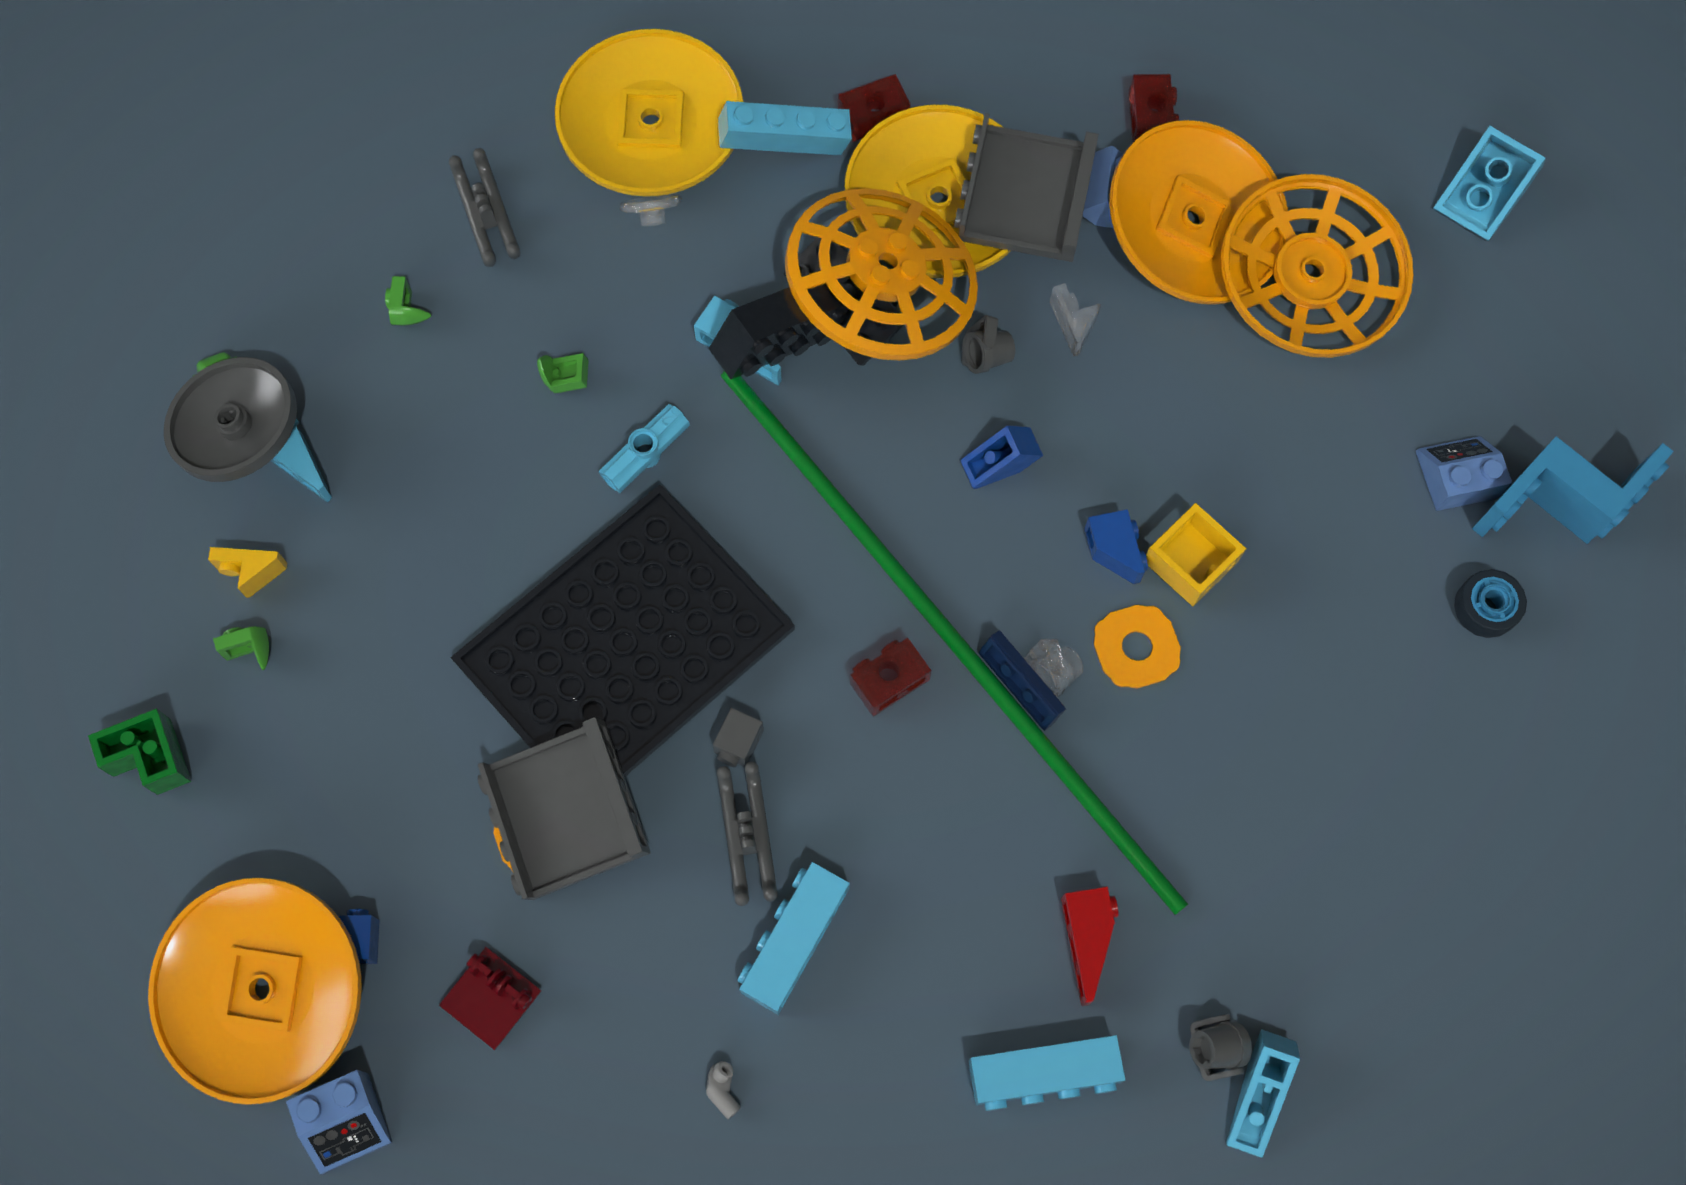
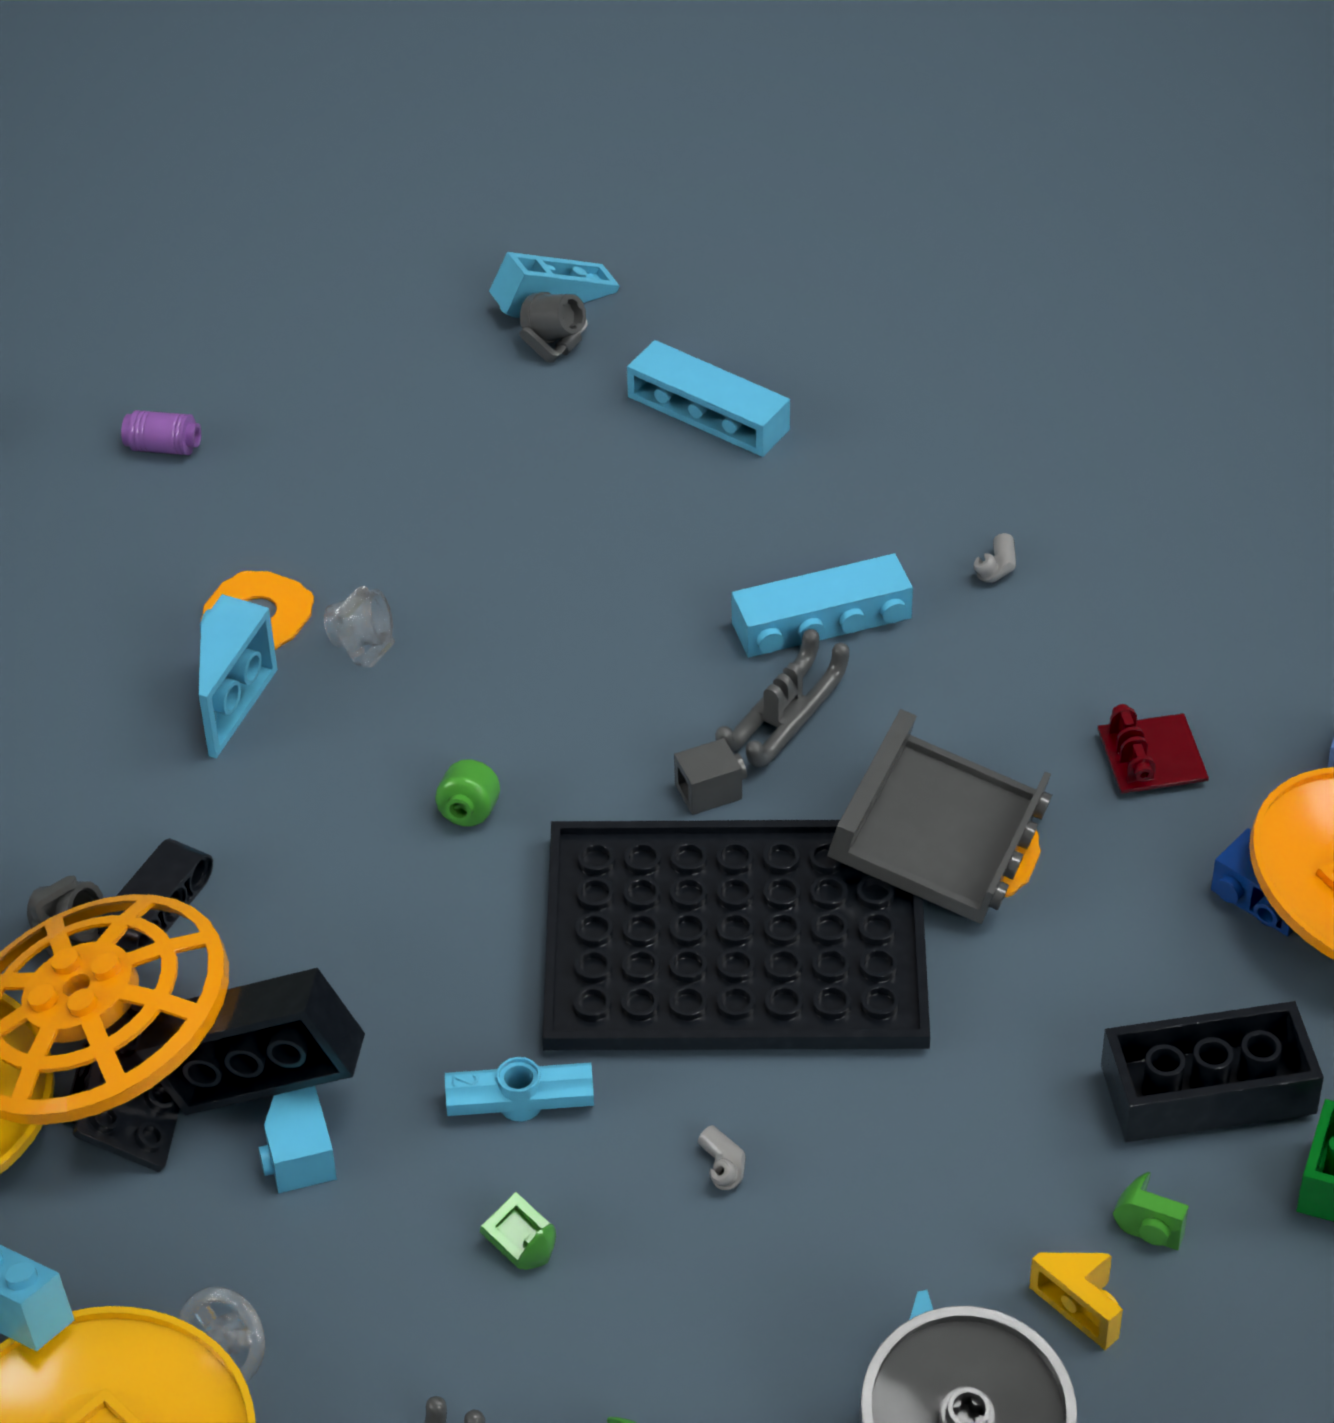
camera: 135 degrees left, 25 degrees down
(242, 778) = (1211, 1071): none -> black brick
(500, 501) = (729, 1158): none -> light grey arm
(862, 606) = (467, 788): none -> bright green head
(880, 694) = (510, 724): clear red brick -> none
(957, 403) = (169, 872): none -> black beam
(959, 647) = (407, 759): green piece -> none
(1001, 456) = (175, 810): blue slope -> none
(1022, 680) = (395, 640): dark blue tile -> none
(1082, 560) = (234, 666): none -> medium azure slope
(1089, 928) = (567, 446): red slope -> none
(1115, 546) = (169, 679): blue slope -> none
(1194, 554) = (126, 616): yellow piece -> none
(1351, 720) = (160, 432): none -> medium lavender head

